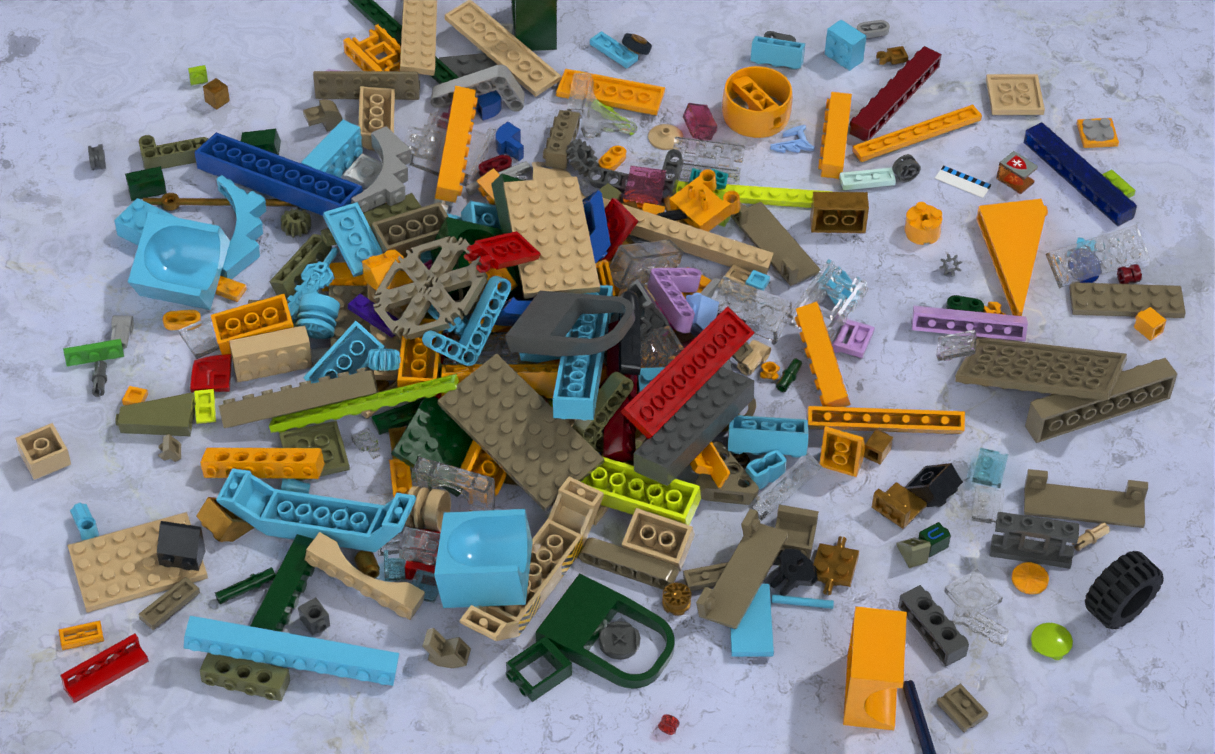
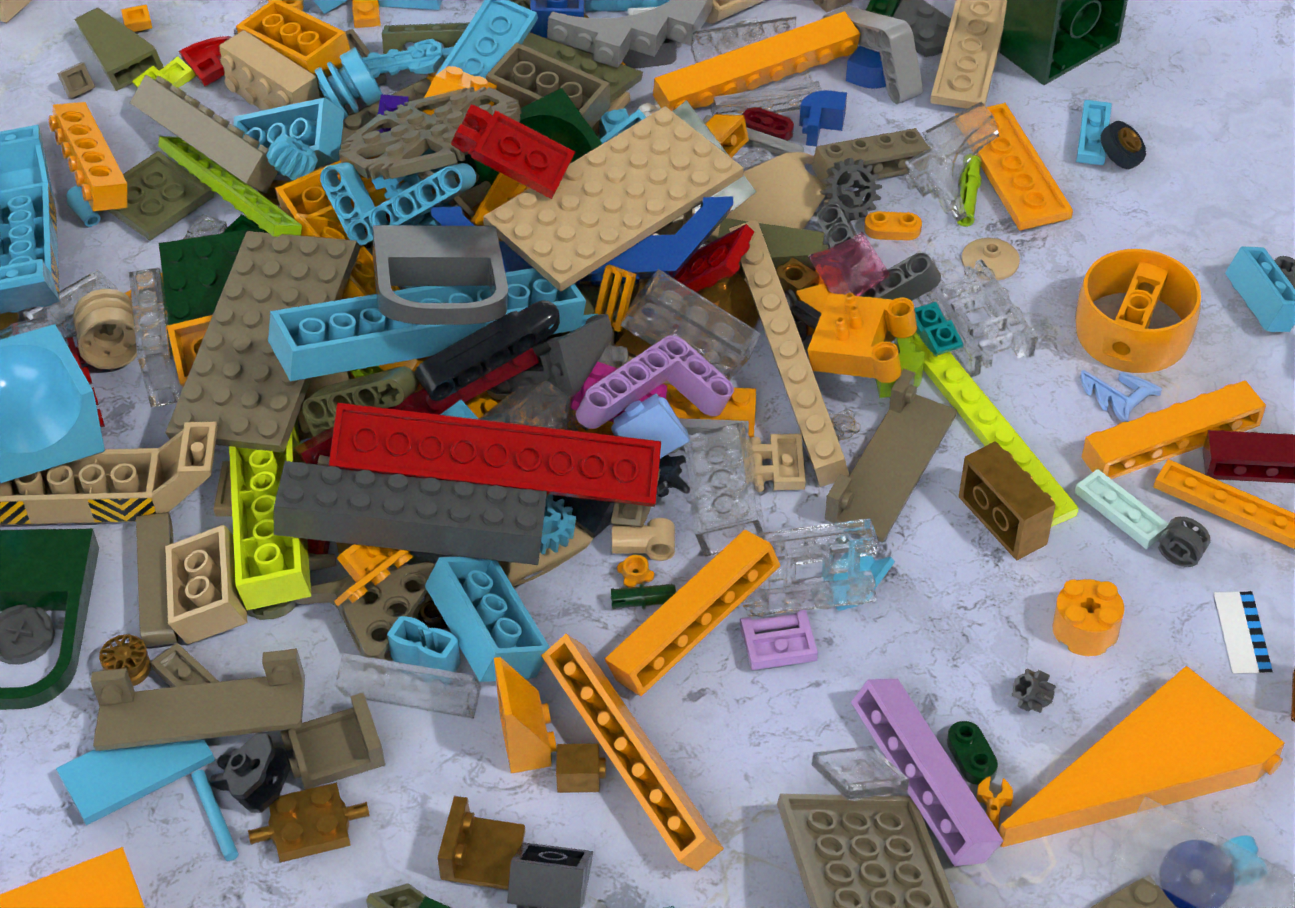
camera: 60 degrees right, 0 degrees up
(700, 121) = (1041, 272): clear pink brick -> none
(758, 280) = (781, 471): medium azure plate -> none

